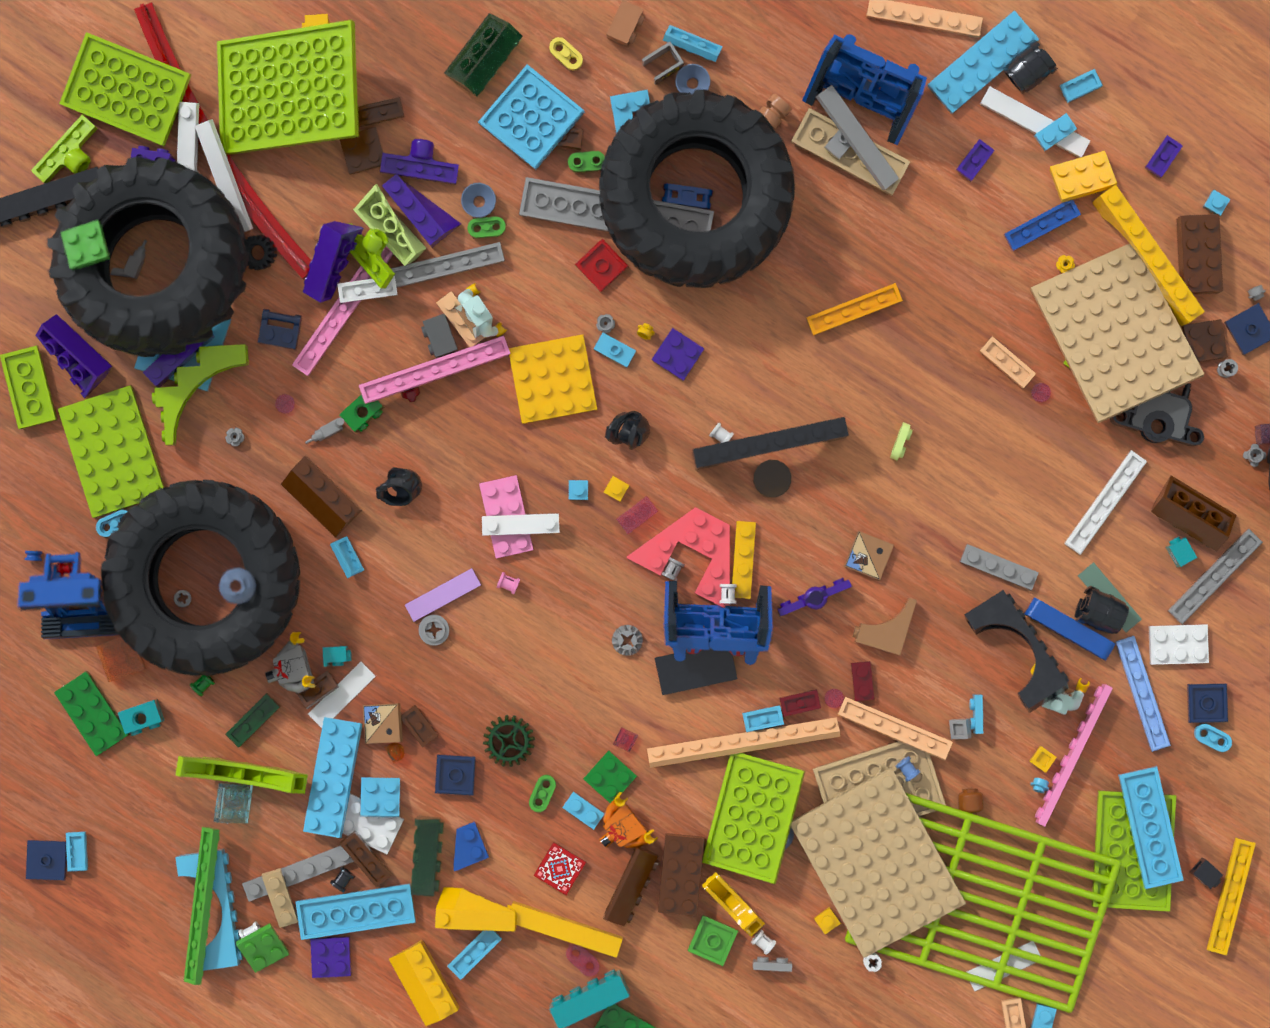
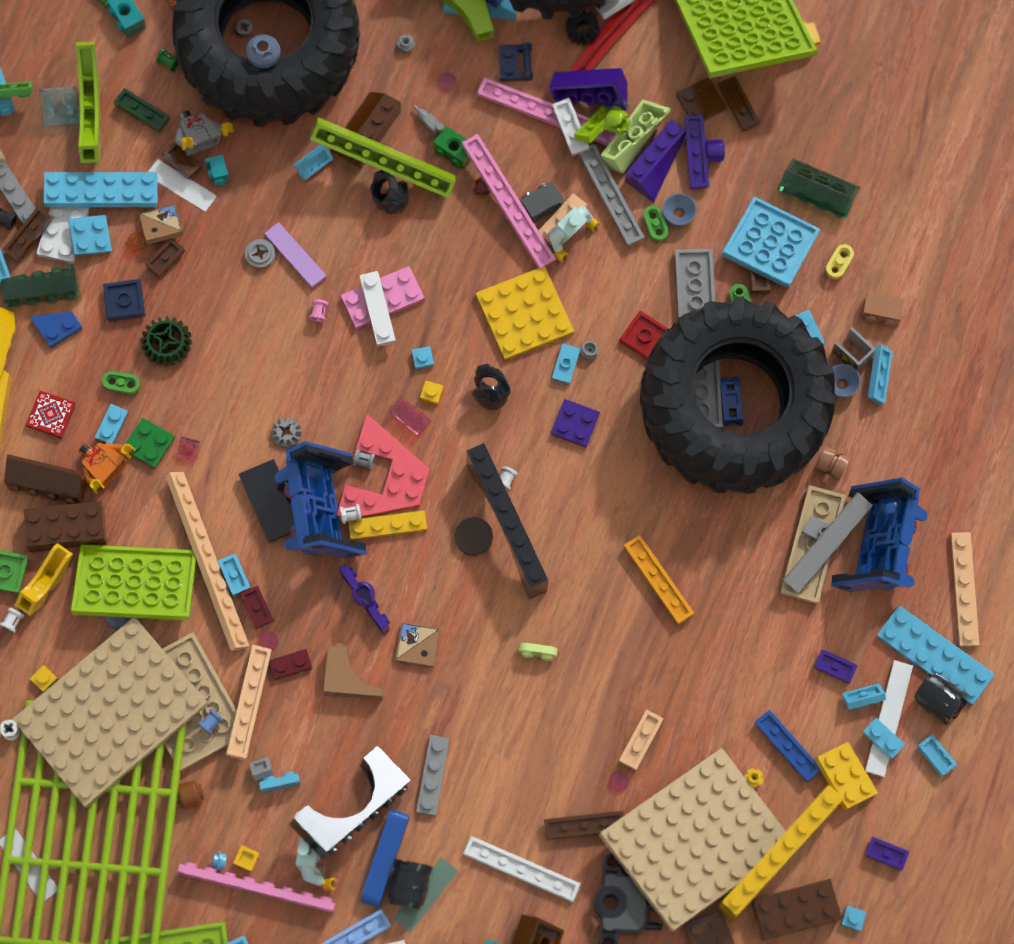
camera: 70 degrees right, 15 degrees down
(365, 487) = (382, 157): none -> lime brick
(645, 331) = (590, 387): yellow plate -> none
(1010, 140) = (864, 696): none -> medium azure plate
(1077, 435) = (580, 825): none -> reddish brown plate

